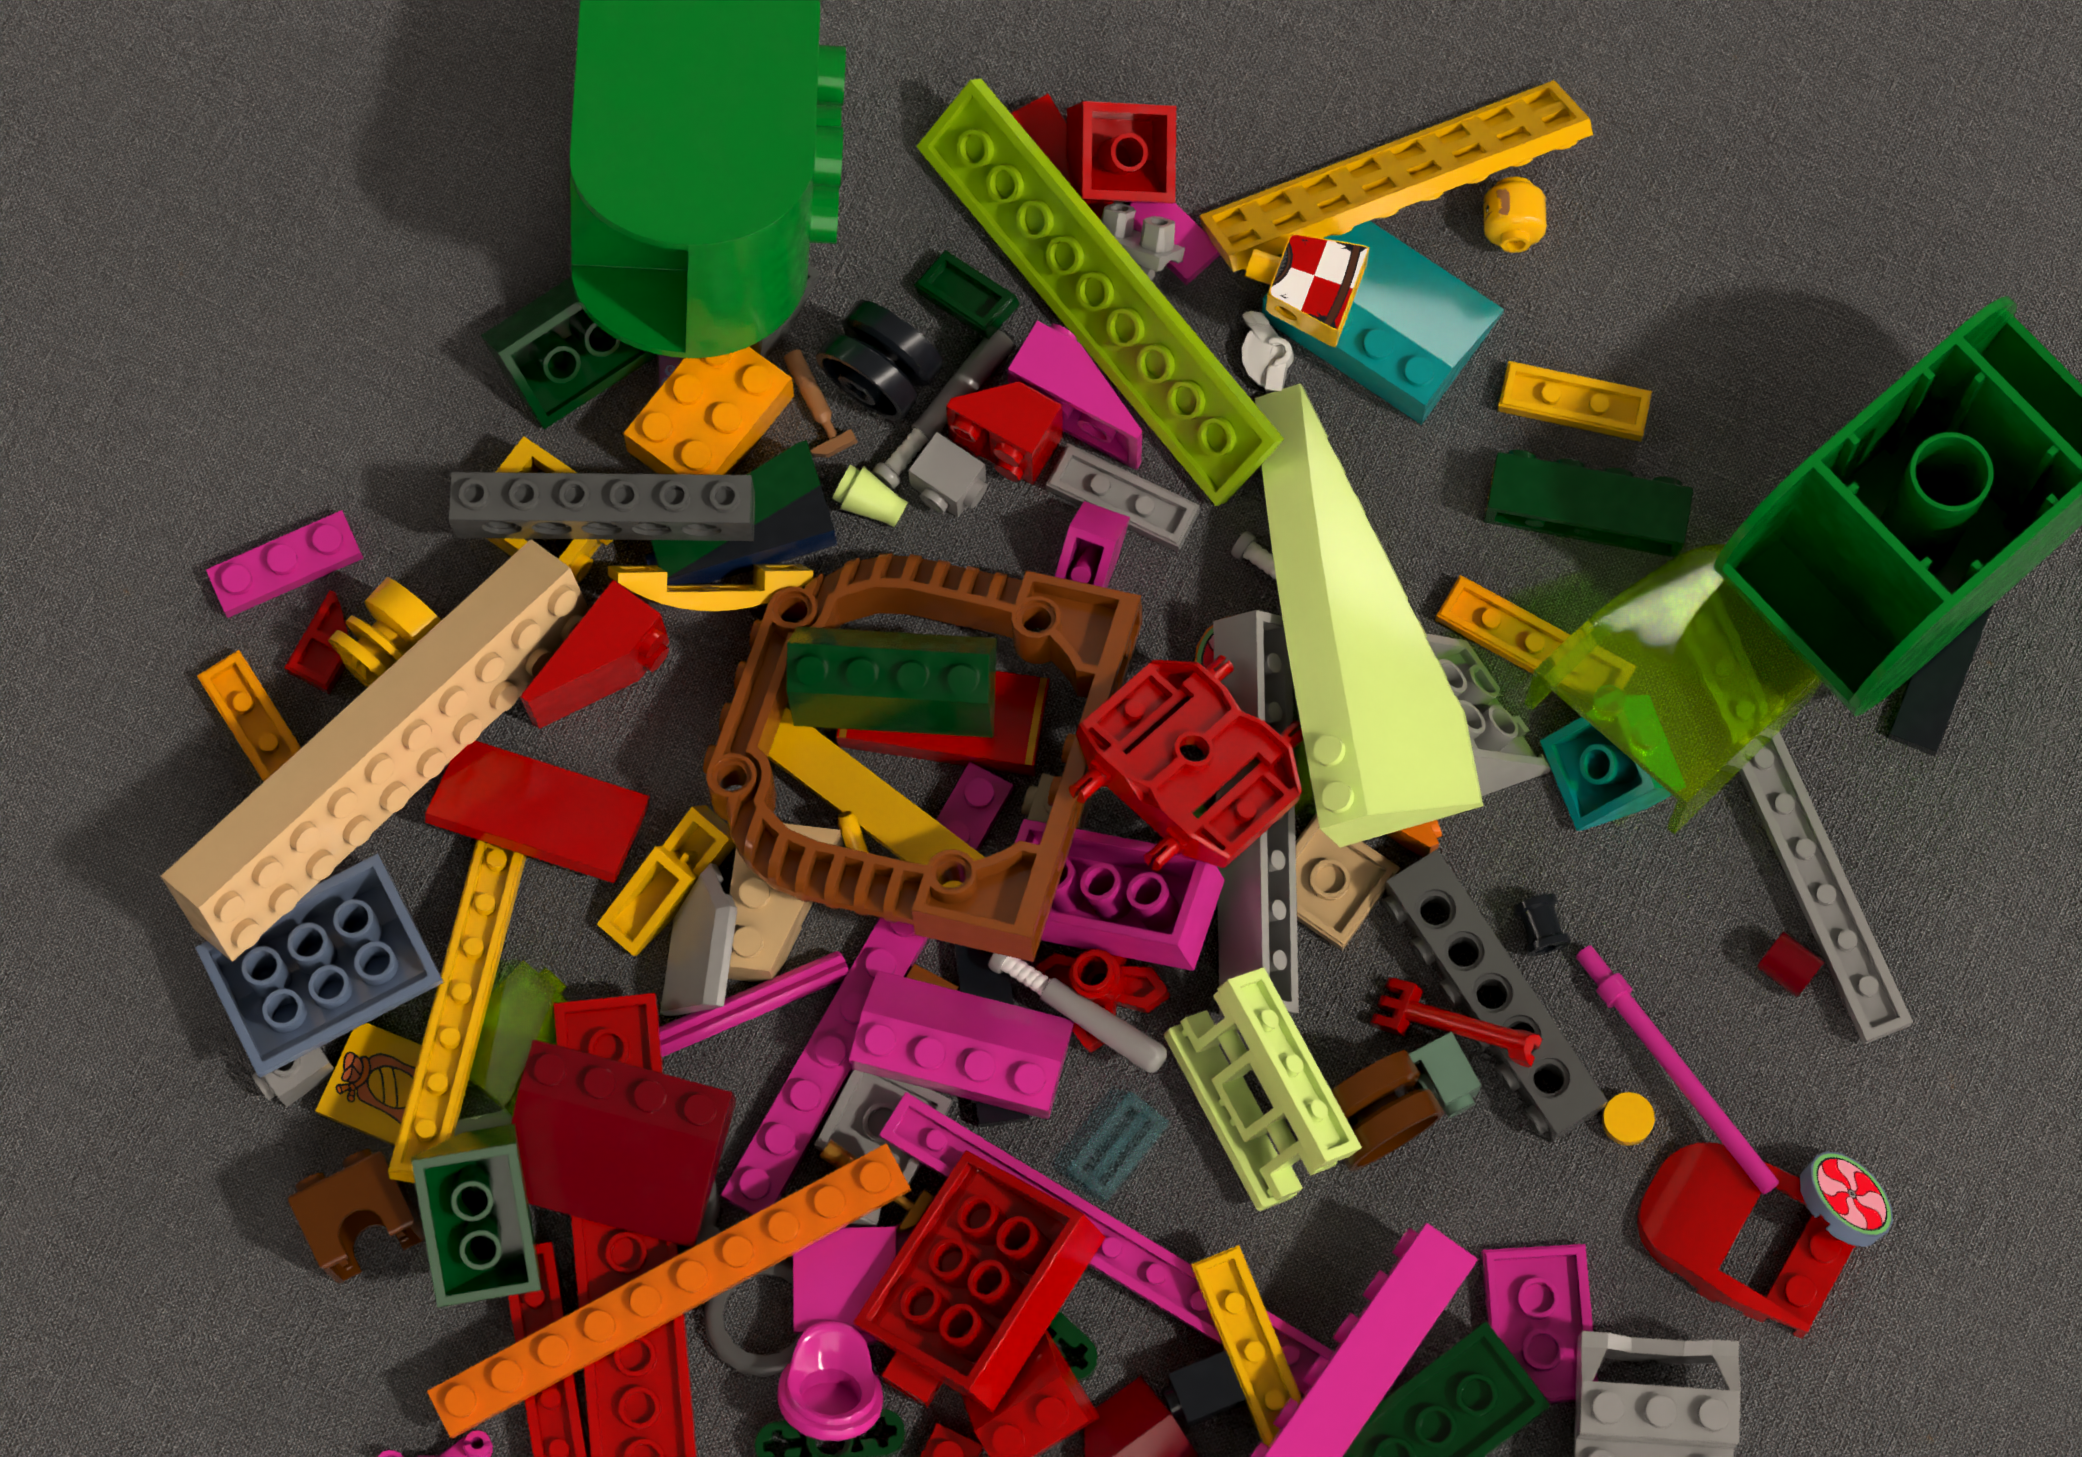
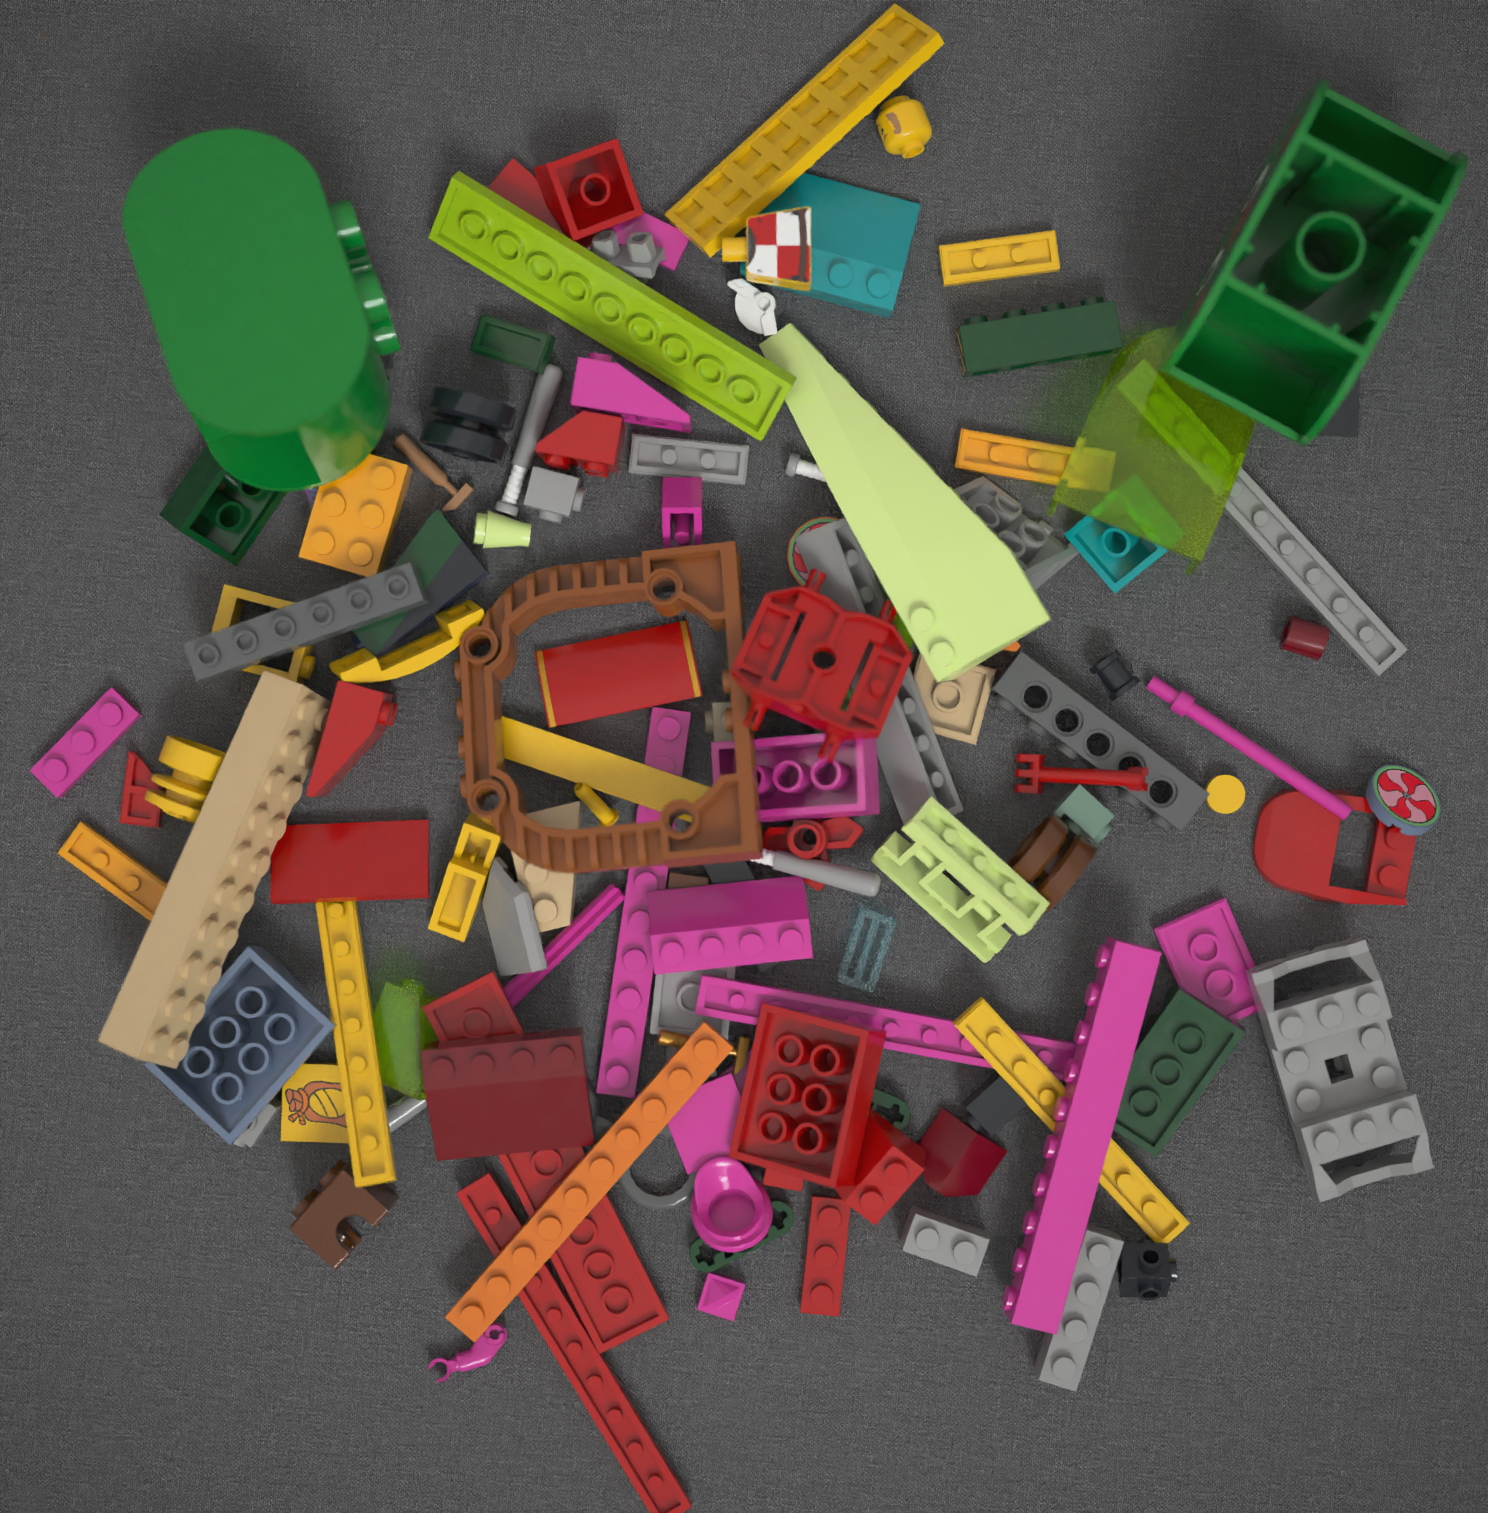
camera: 20 degrees left, 15 degrees up
(476, 1217) = (432, 1191): dark green slope -> none
(892, 681) = (575, 676): dark green slope -> none

